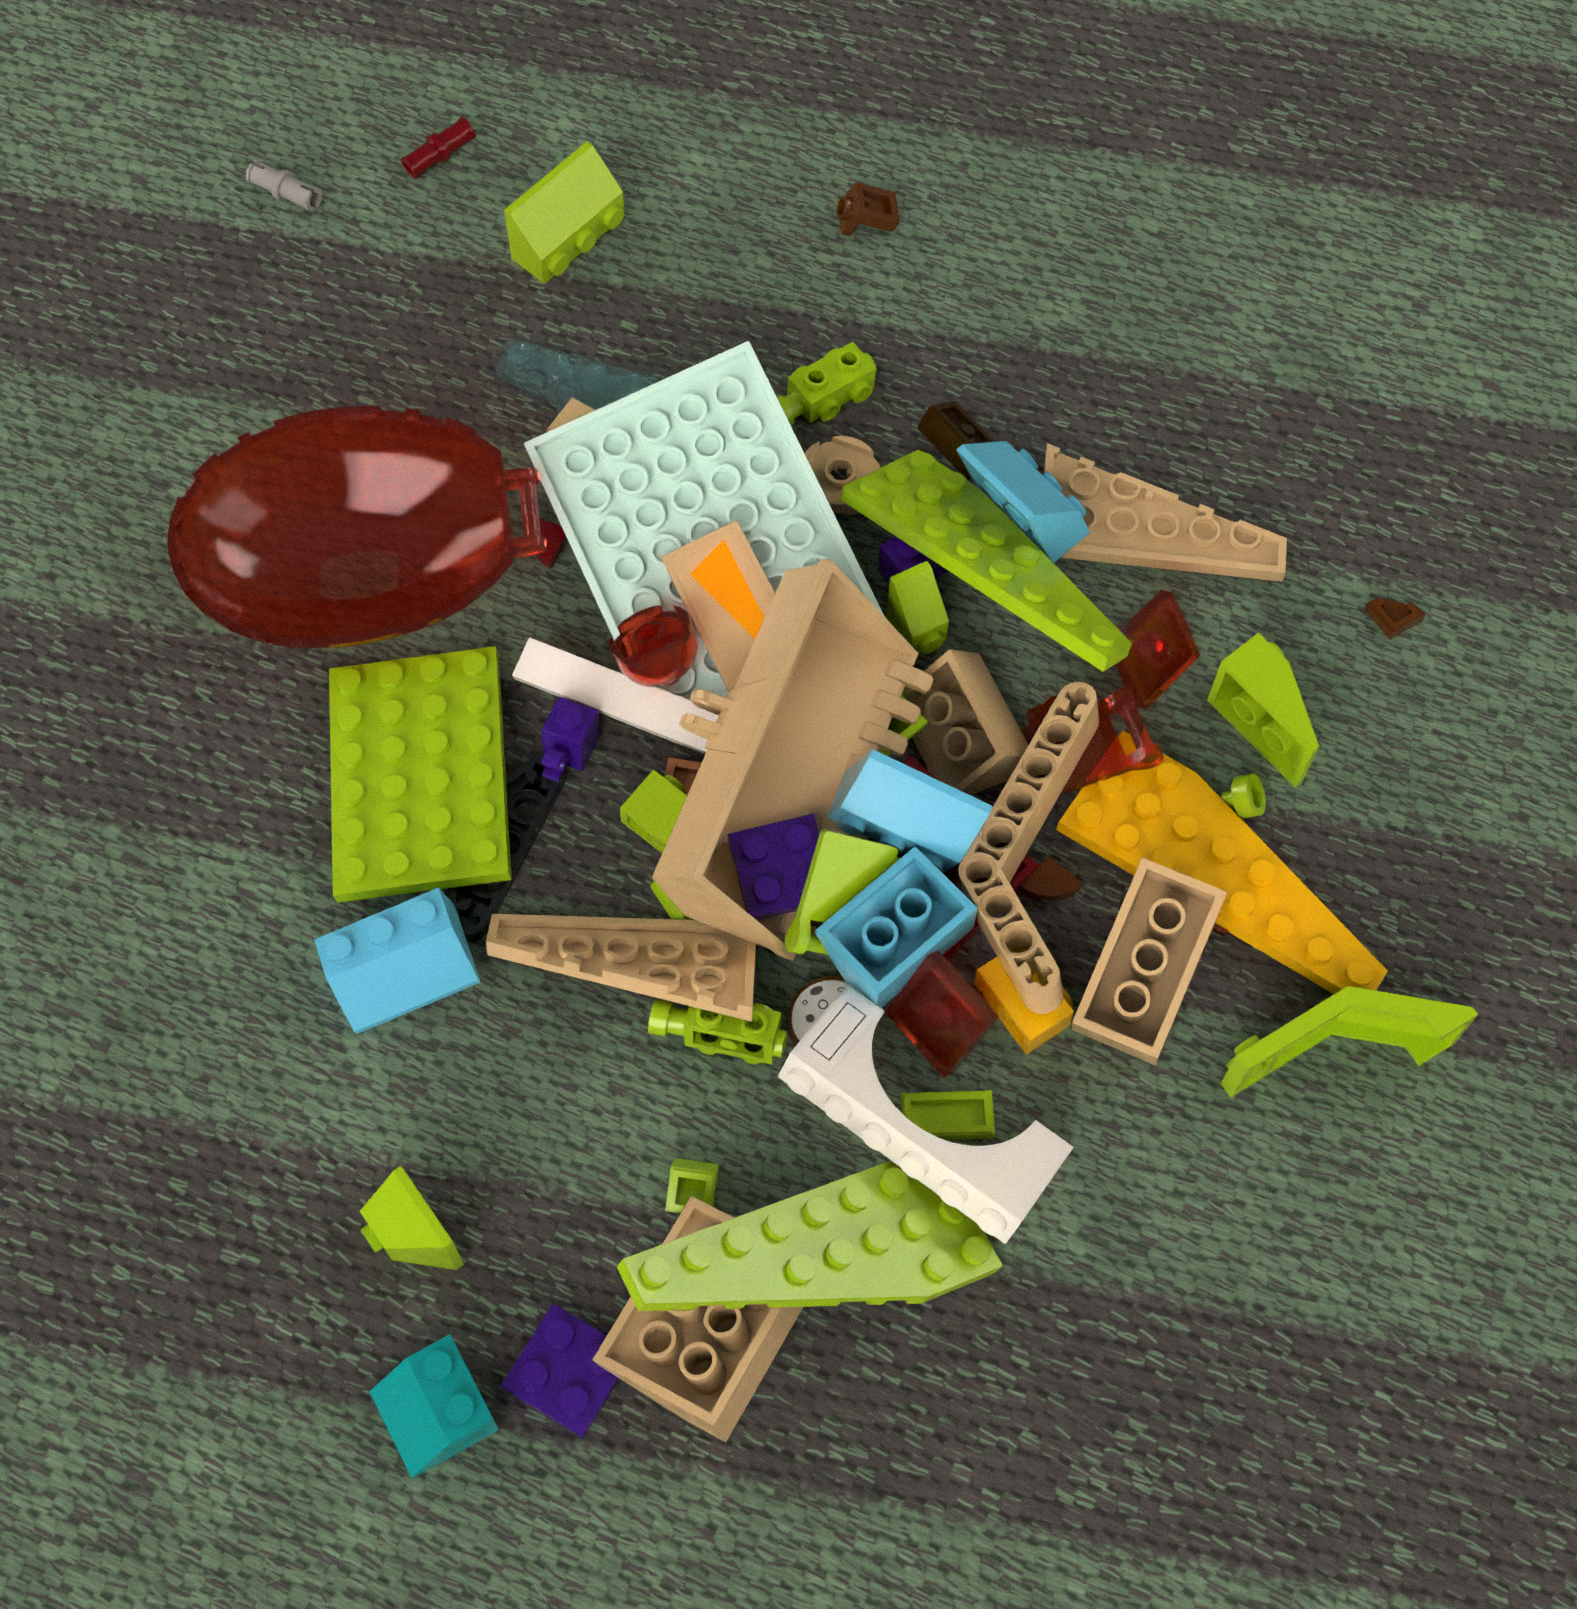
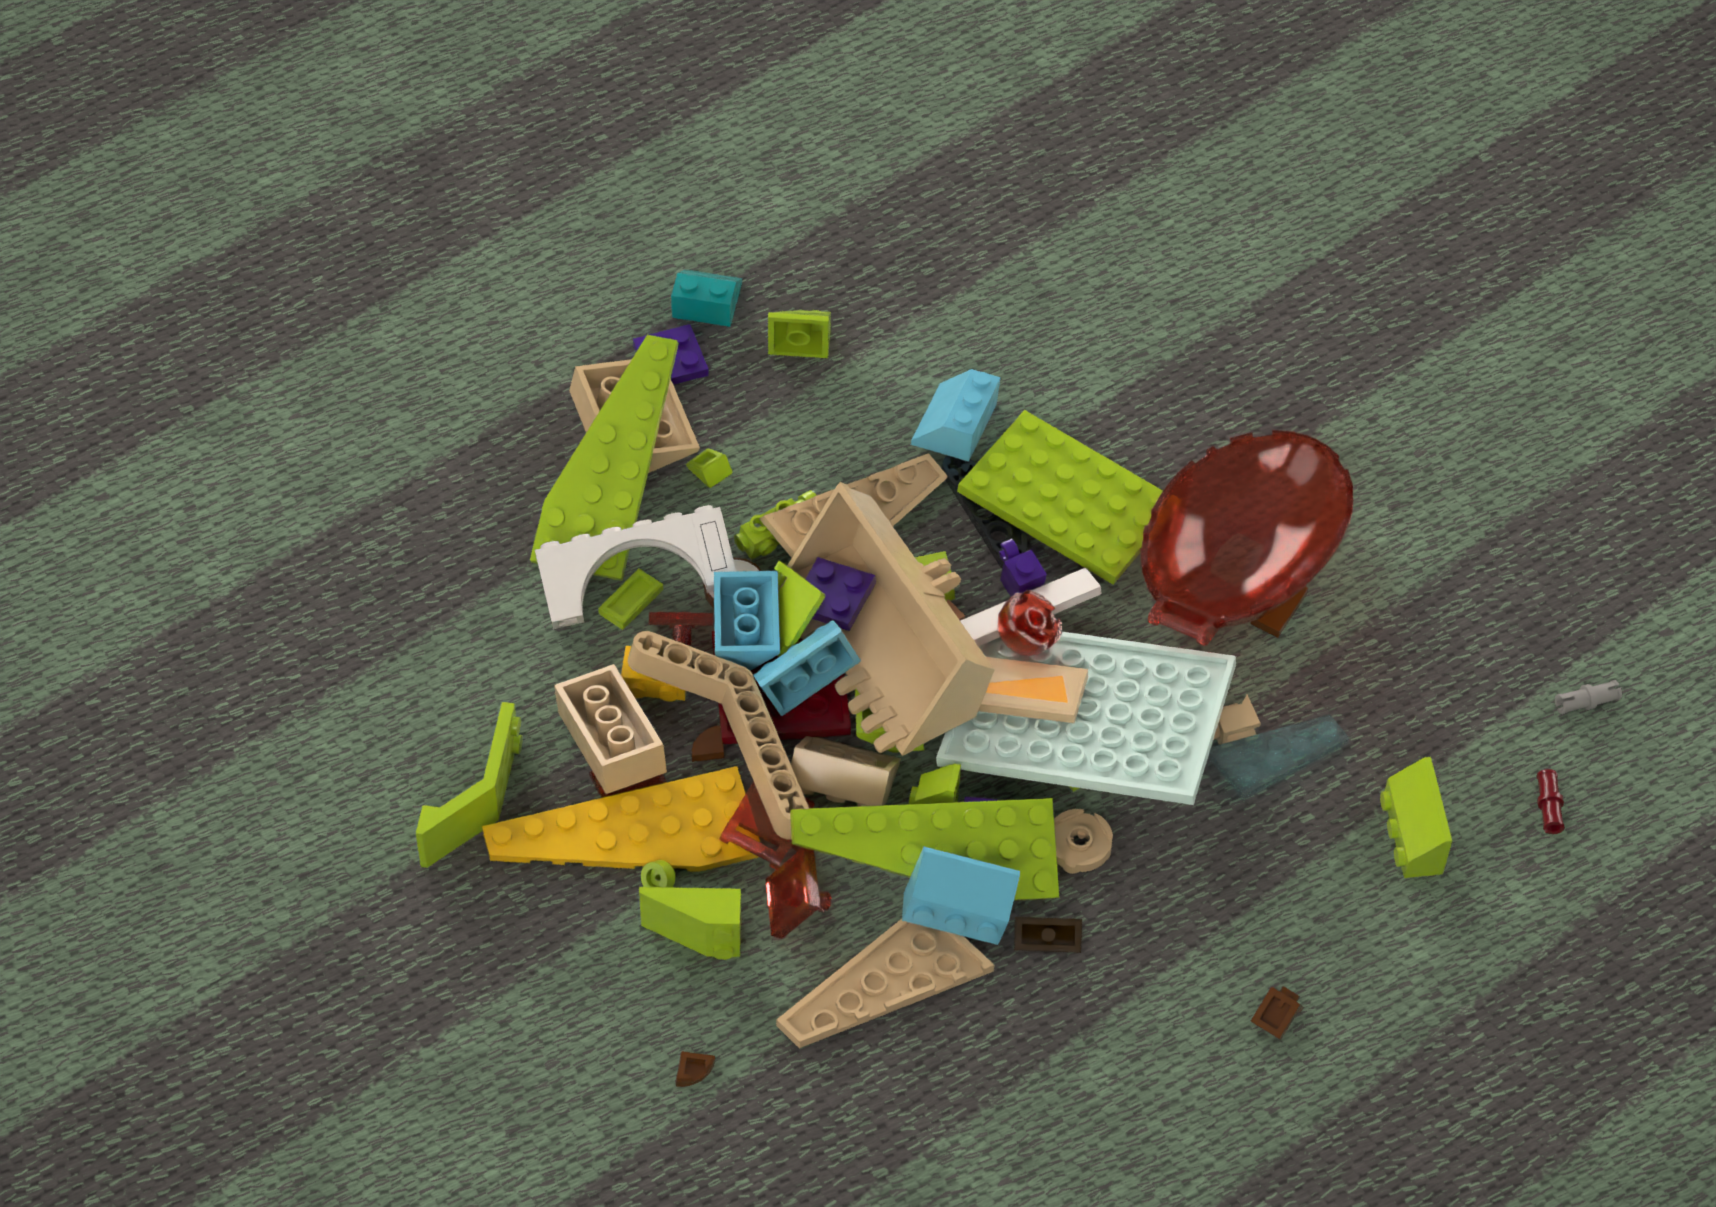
camera: 130 degrees right, 10 degrees down
(828, 384) = (1154, 876): lime brick -> none

